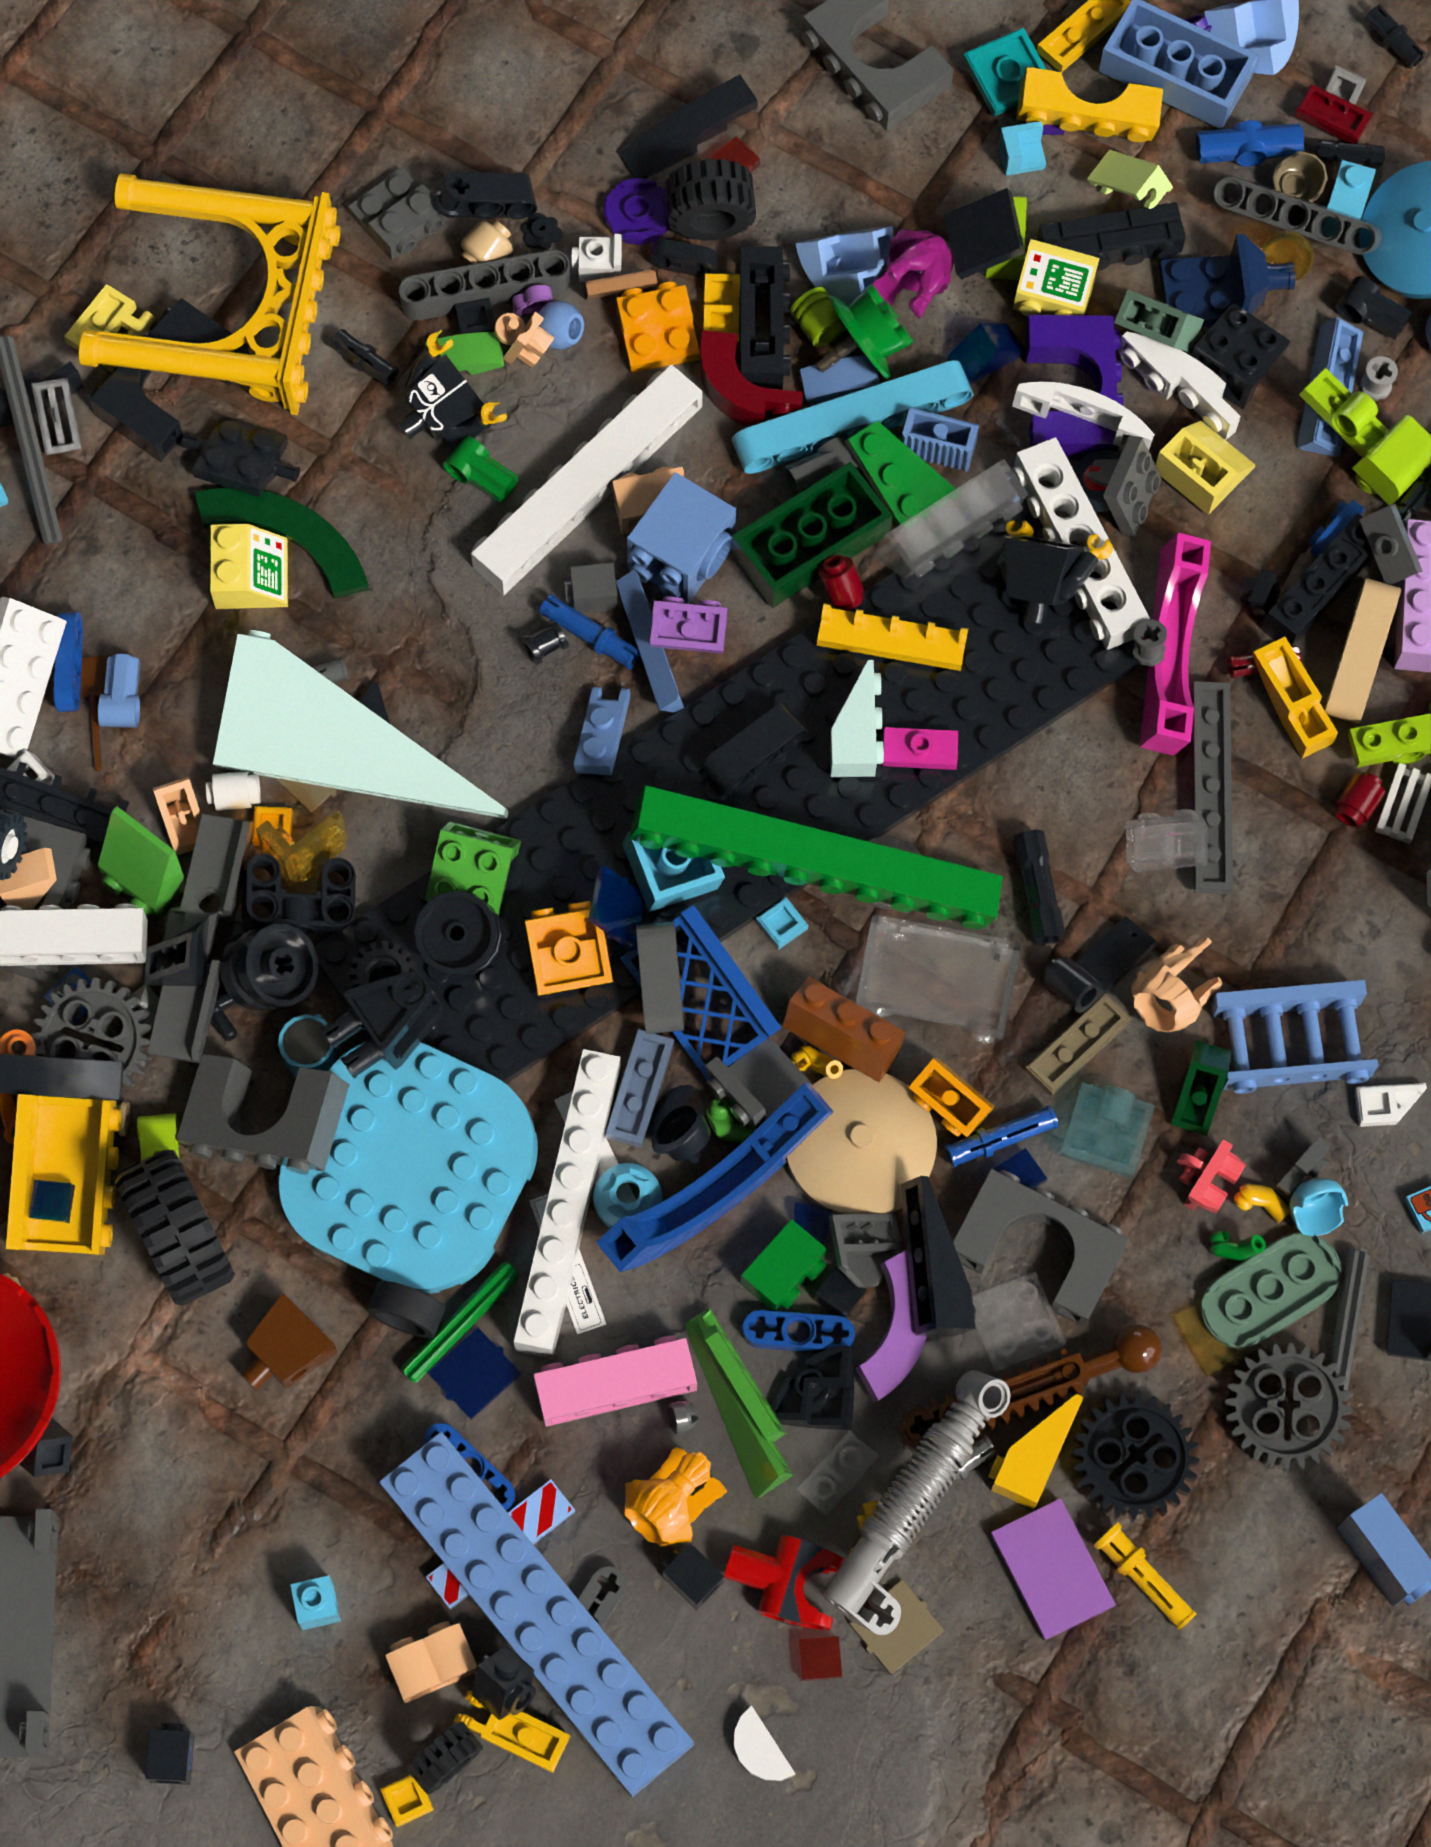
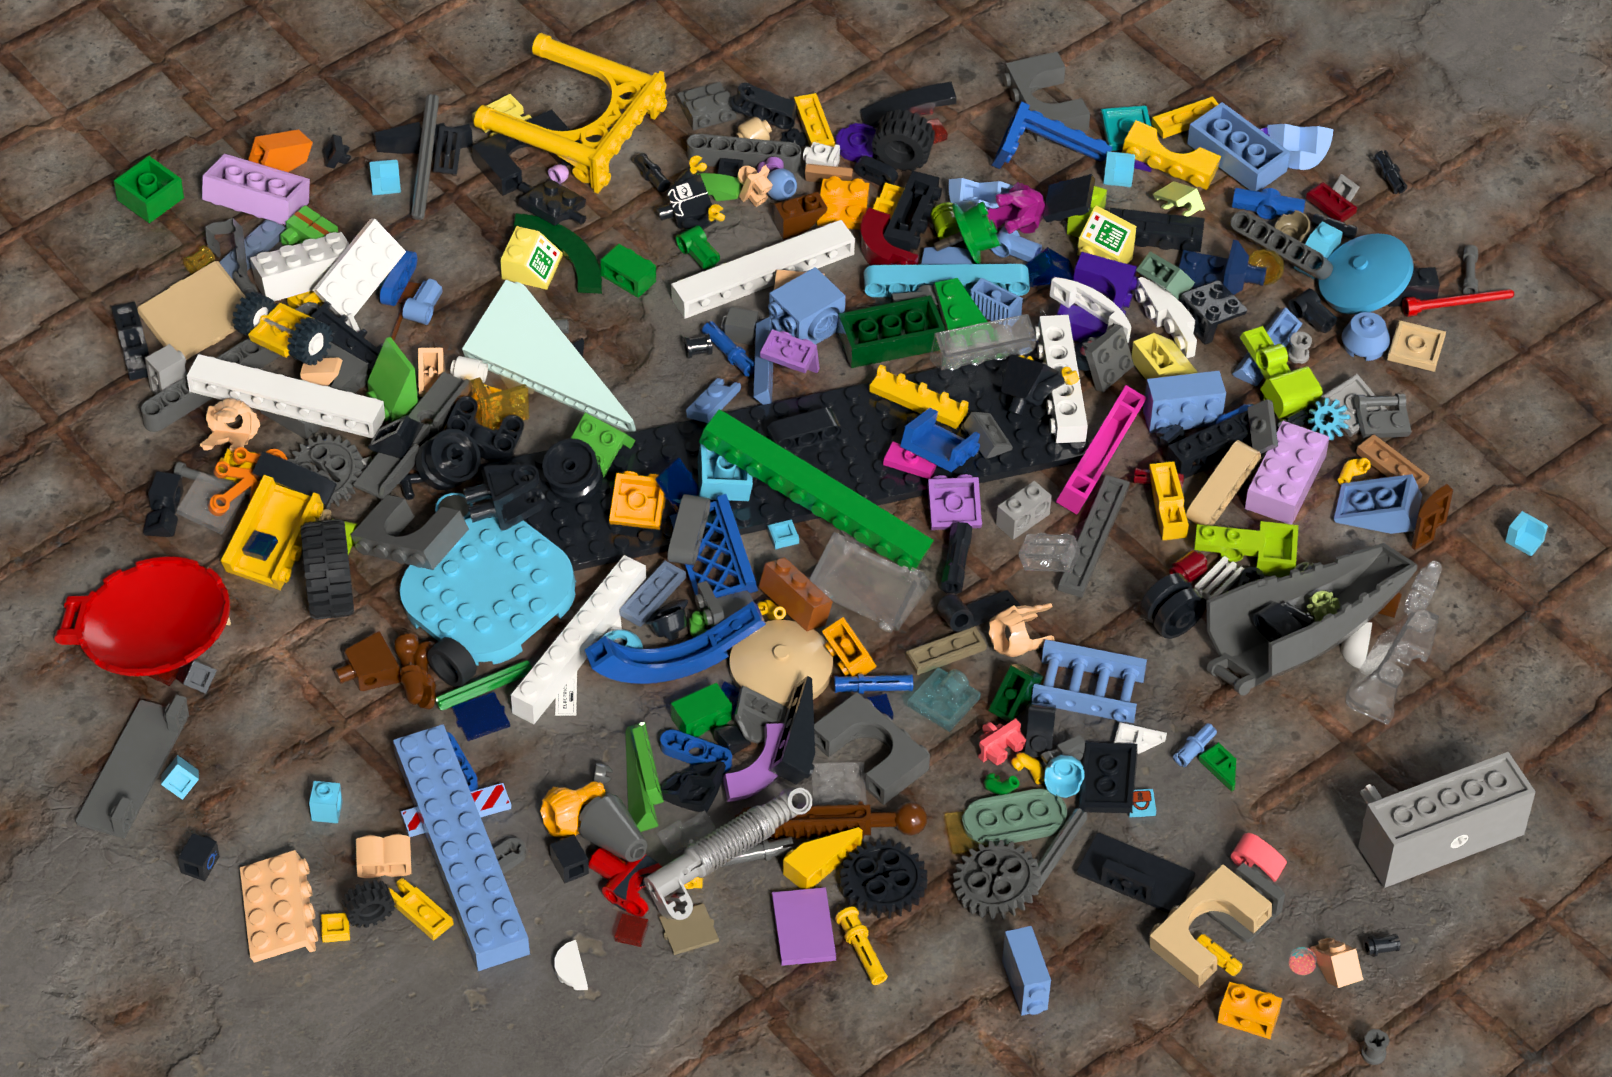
camera: 20 degrees right, 20 degrees down
(88, 1630) = (179, 777): none -> medium azure panel
(230, 402) = (558, 173): none -> lavender hinge
(364, 1351) = (414, 672): none -> reddish brown piece
(396, 542) = (628, 270): none -> green brick
(503, 1683) = (422, 872): black brick -> none
(563, 196) = (813, 120): none -> yellow plate
(605, 369) = (798, 214): none -> reddish brown slope
(615, 1381) = (566, 739): bright pink brick -> none
(746, 1519) = (611, 827): none -> dark grey cone
(841, 582) = (898, 358): dark red brick -> none
(854, 731) = (871, 436): light aqua slope -> none
(865, 130) = (1050, 129): none -> blue bracket
(932, 327) = (1016, 246): none -> medium blue piece
(954, 713) = (938, 444): none -> blue panel
(1003, 797) = (954, 501): none -> medium lavender plate
(1008, 669) = (991, 437): none -> dark grey slope
(1103, 778) = (1023, 510): none -> light grey brick
(1149, 642) = (1082, 440): dark grey bush -> none
(1259, 1135) = (1040, 729): none -> black brick
(1262, 528) = (1184, 401): none -> medium blue brick
(1373, 882) = (1173, 605): none -> black wheel
(1377, 1183) = (1108, 777): none -> black tile

